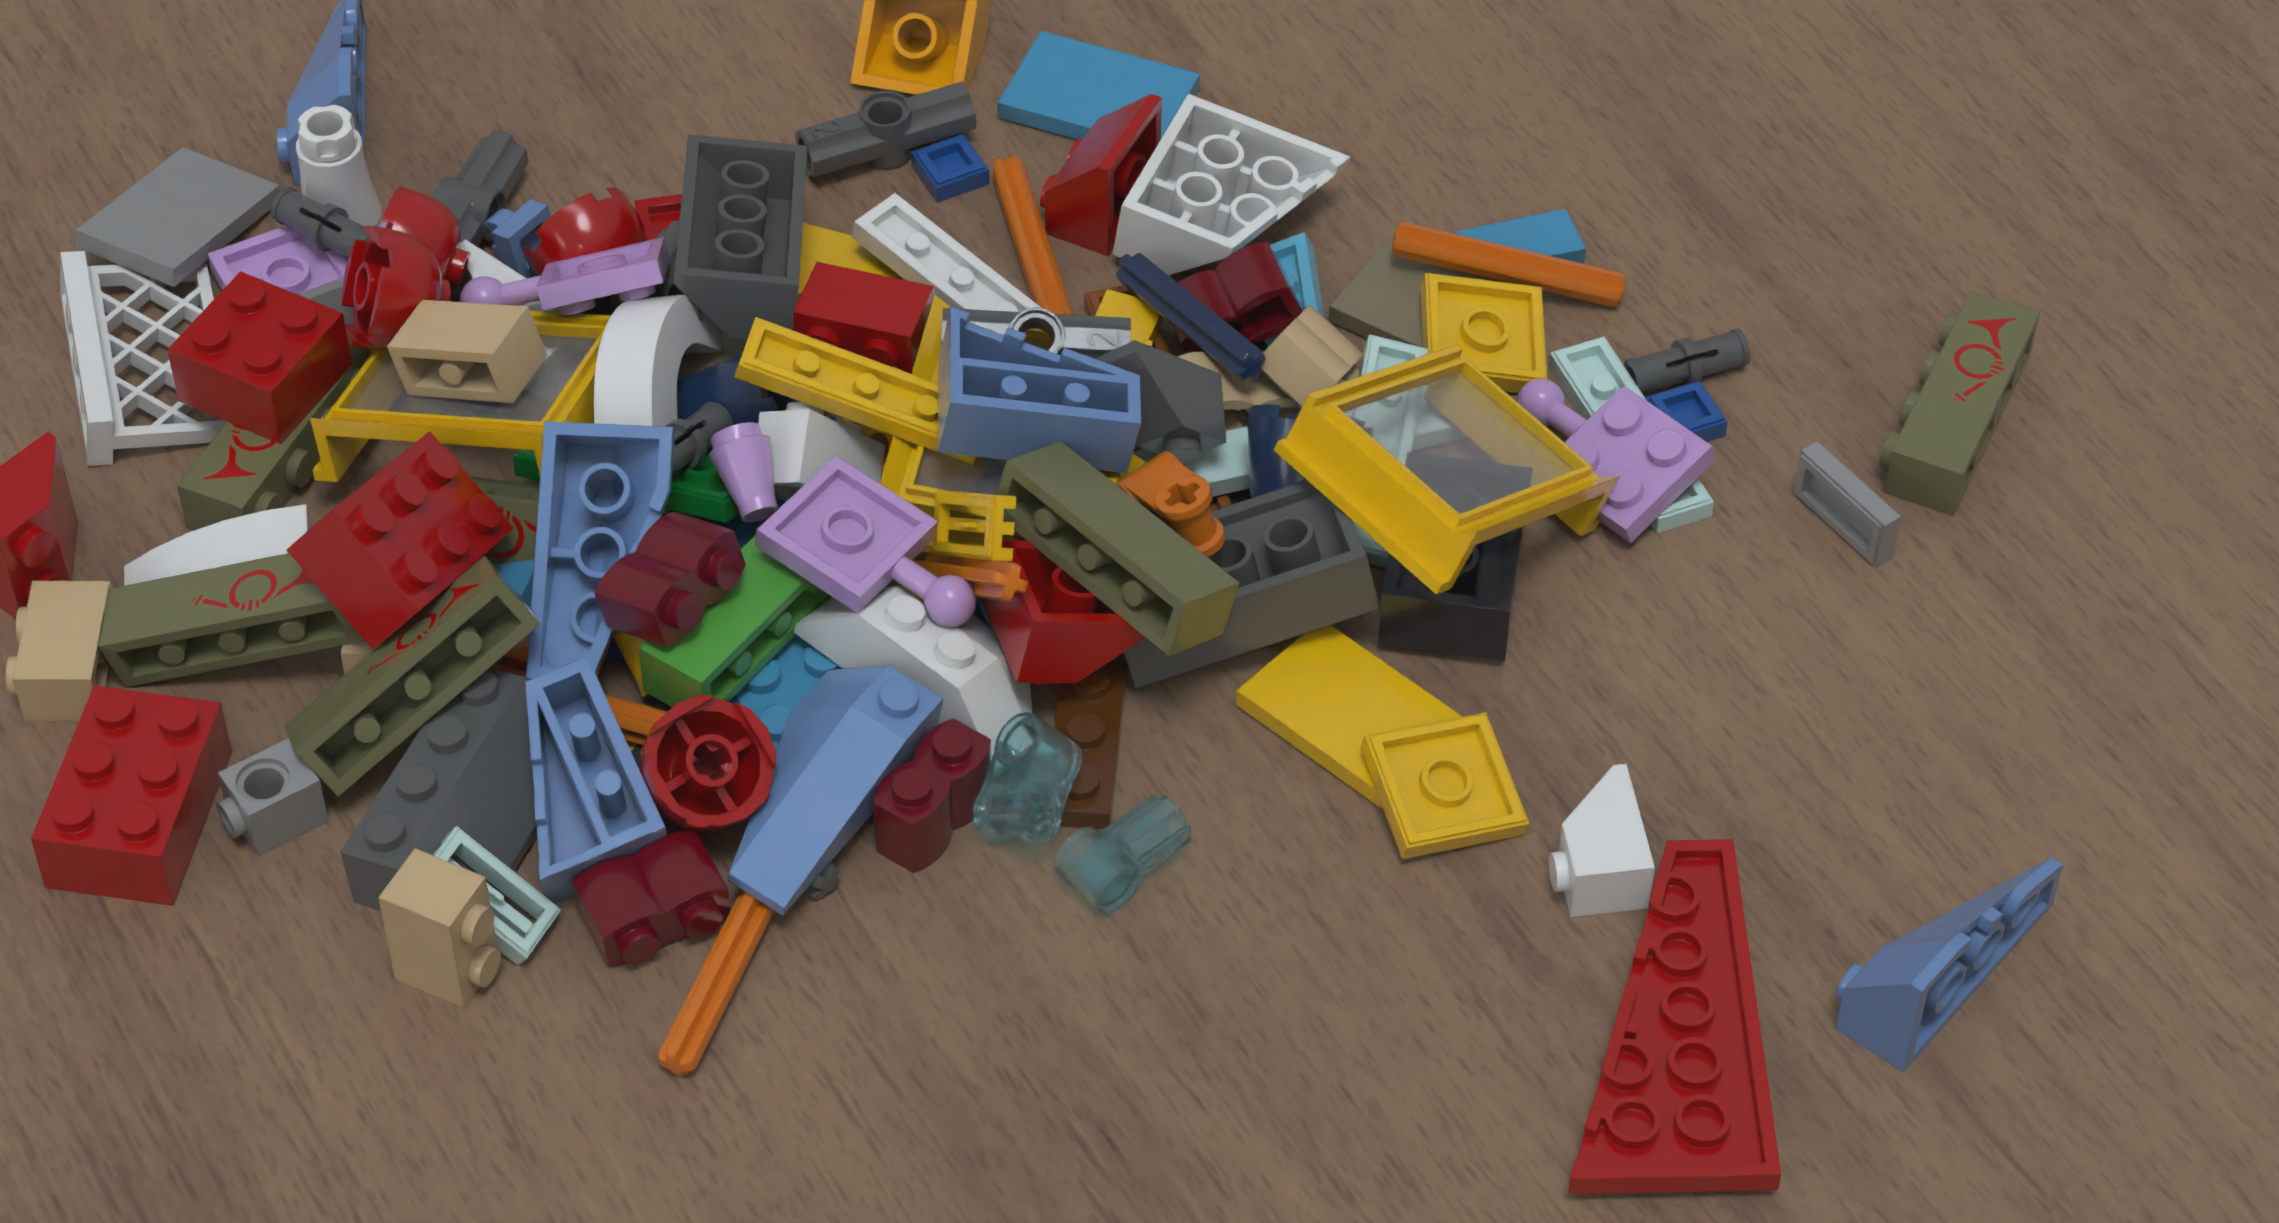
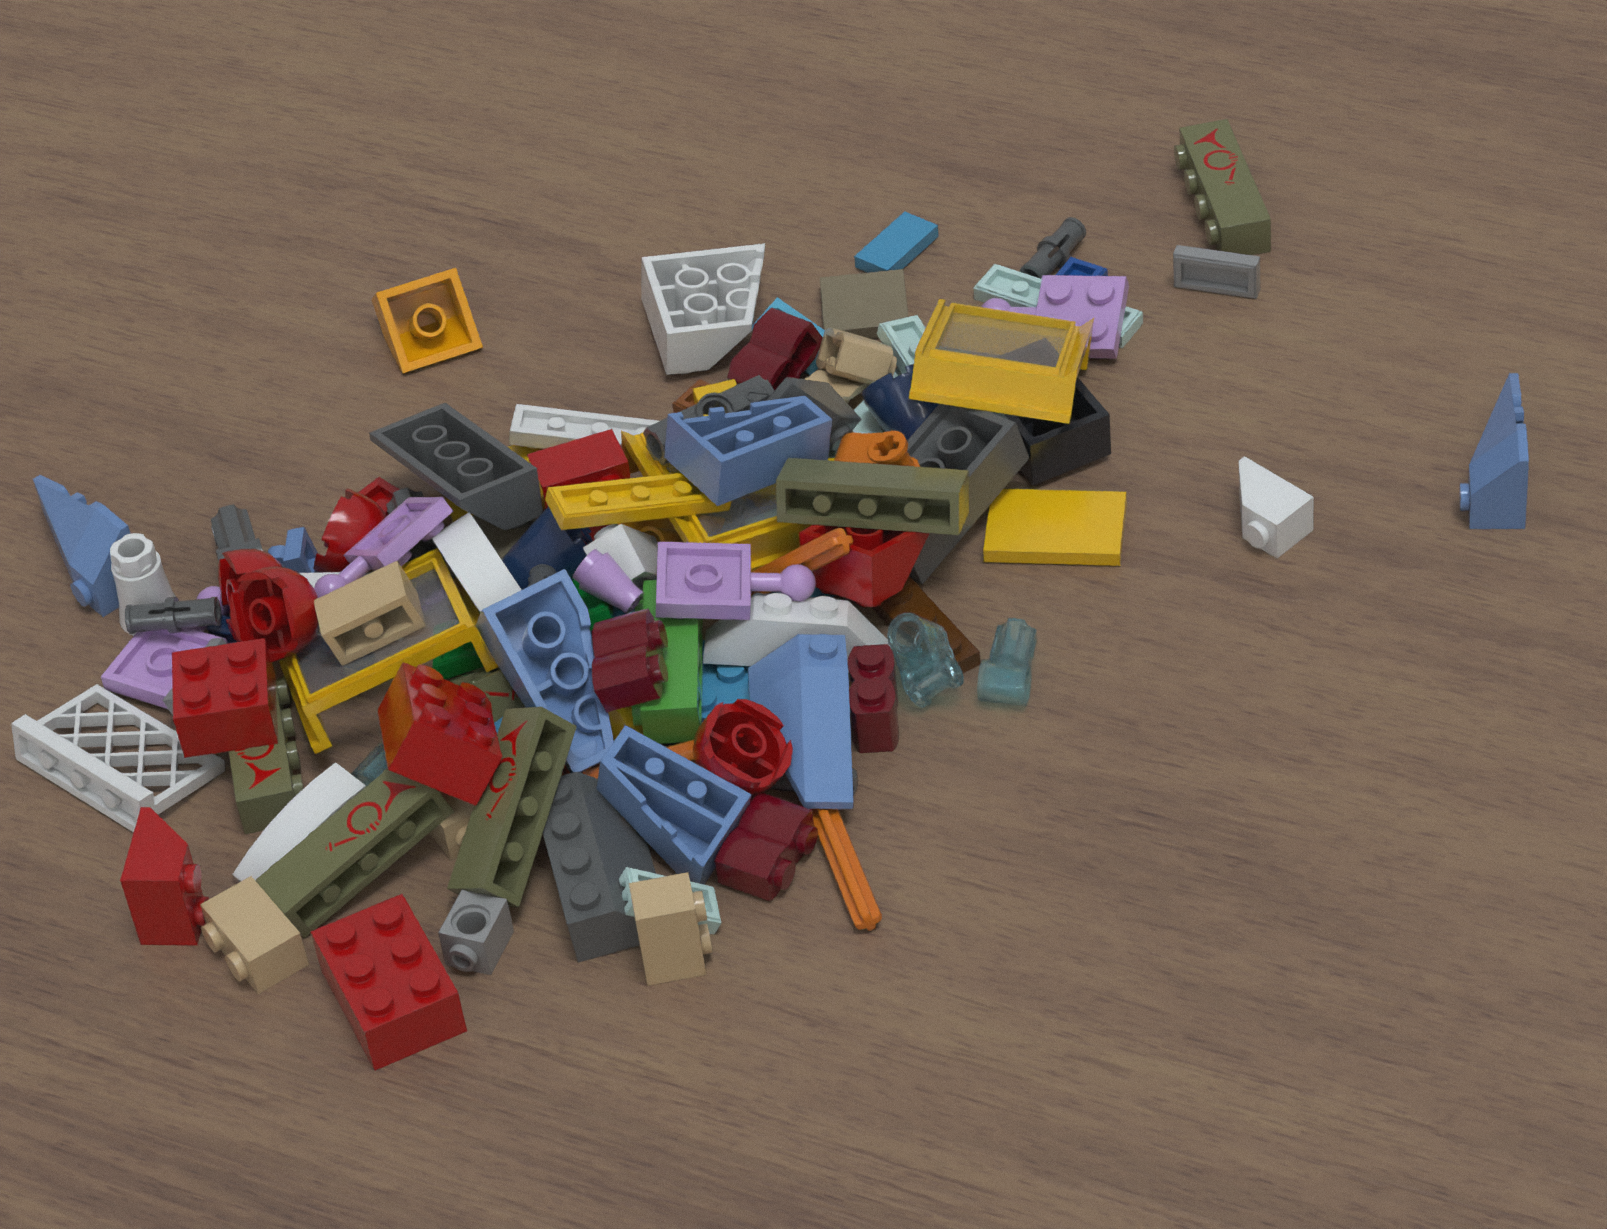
camera: 30 degrees left, 5 degrees down
(177, 216) = (55, 669): light grey tile -> none
(887, 129) = (466, 373): dark grey piece -> none
(950, 168) = (516, 383): blue tile -> none
(993, 526) = (801, 521): yellow tile -> none
(1029, 235) = (601, 389): orange axle -> none
(1073, 83) = (565, 299): dark azure tile -> none
(1099, 173) = (624, 332): red slope -> none
(1191, 317) = (769, 368): dark blue axle -> none
(1444, 785) = (1149, 529): yellow tile -> none
(1491, 321) = (919, 287): yellow tile -> none
(1508, 264) = (906, 254): orange axle -> none
(1685, 1063) = (1415, 586): red wing -> none

